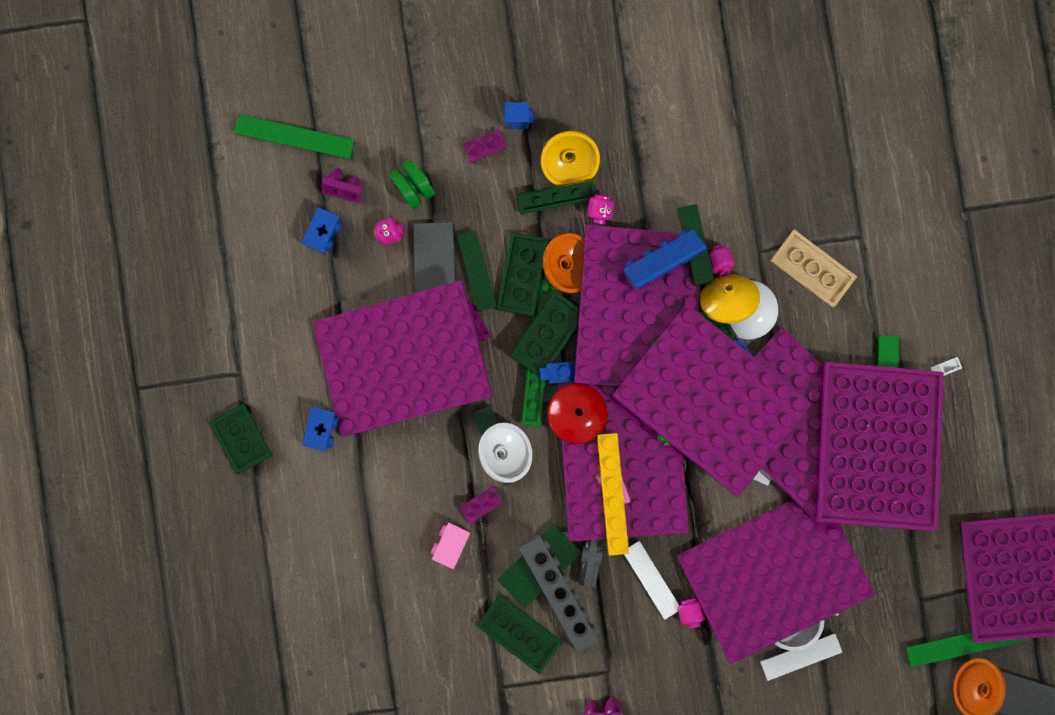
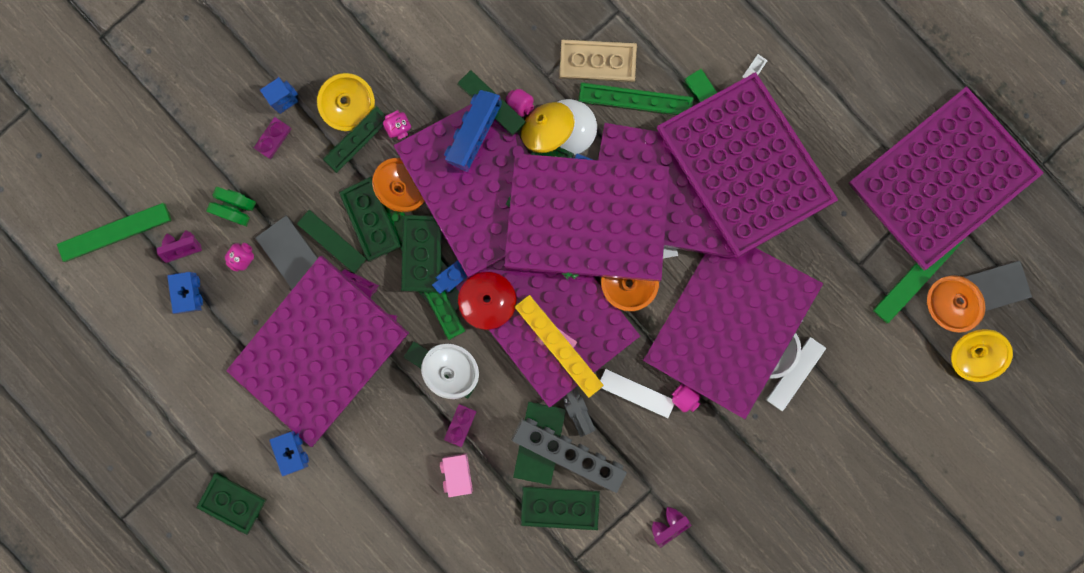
camera: 30 degrees left, 0 degrees up
(701, 494) = (629, 298): none -> orange dish
(822, 324) = (634, 99): none -> green tile

